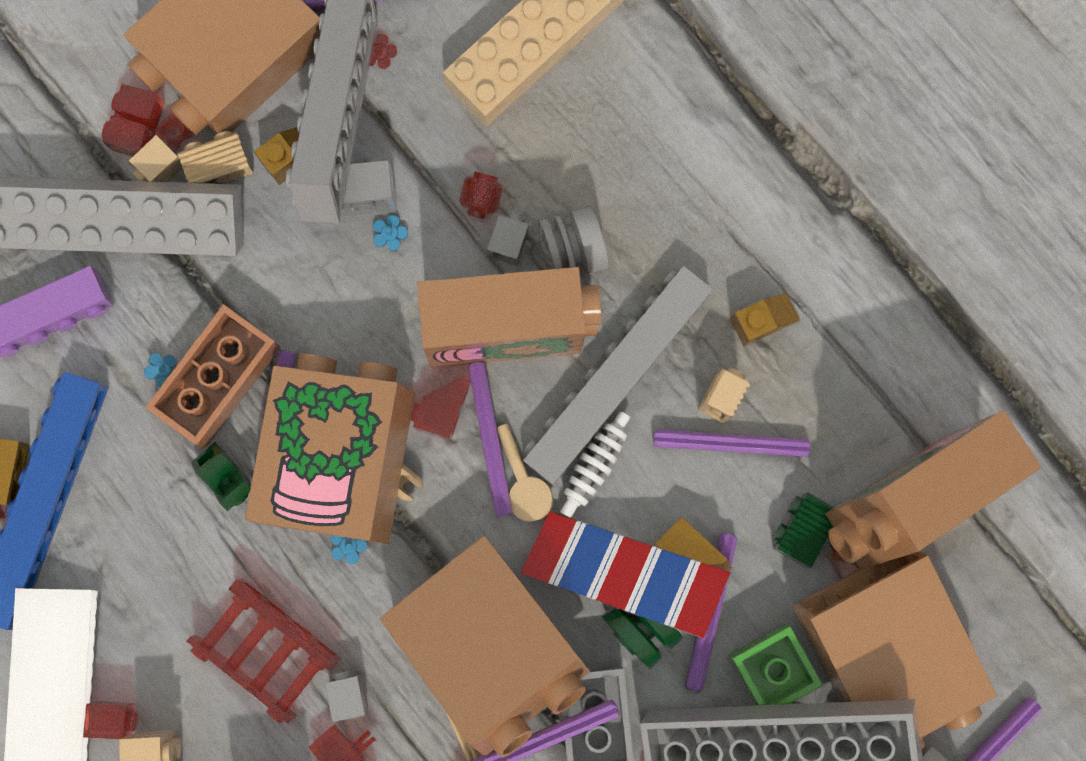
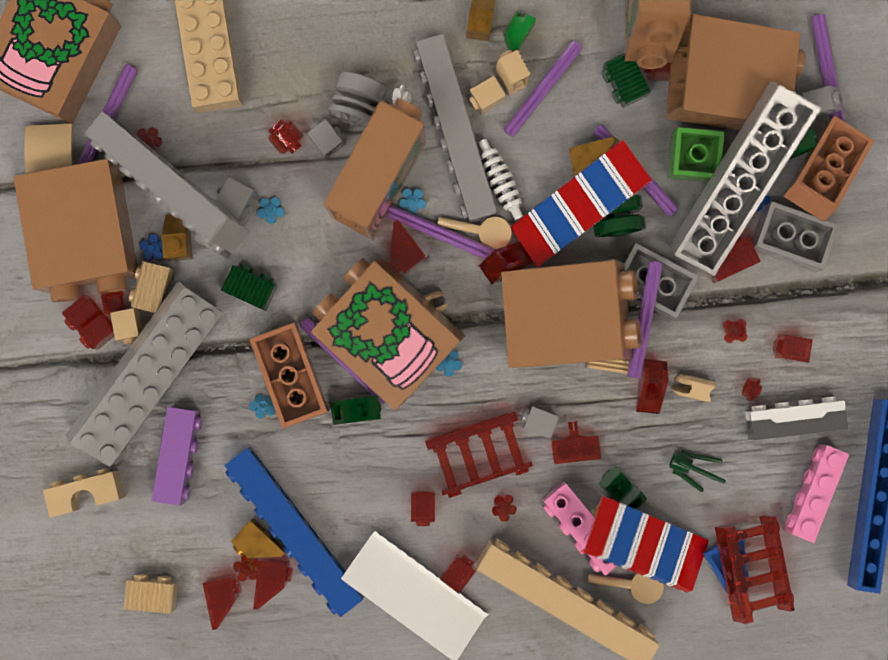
camera: 50 degrees left, 5 degrees up
(160, 627) = (423, 507): none -> clear red brick
(220, 721) = (504, 508): none -> clear red plant
(261, 133) = (152, 248): none -> blue plant
(285, 267) = (249, 287): none -> dark green brick
(504, 532) = (505, 259): none -> clear red slope
(505, 381) = (412, 200): none -> dark azure plant
(612, 292) = (402, 93): none -> white plate
(679, 384) = (486, 95): none -> tan brick
(776, 371) = (518, 31): none -> green brick

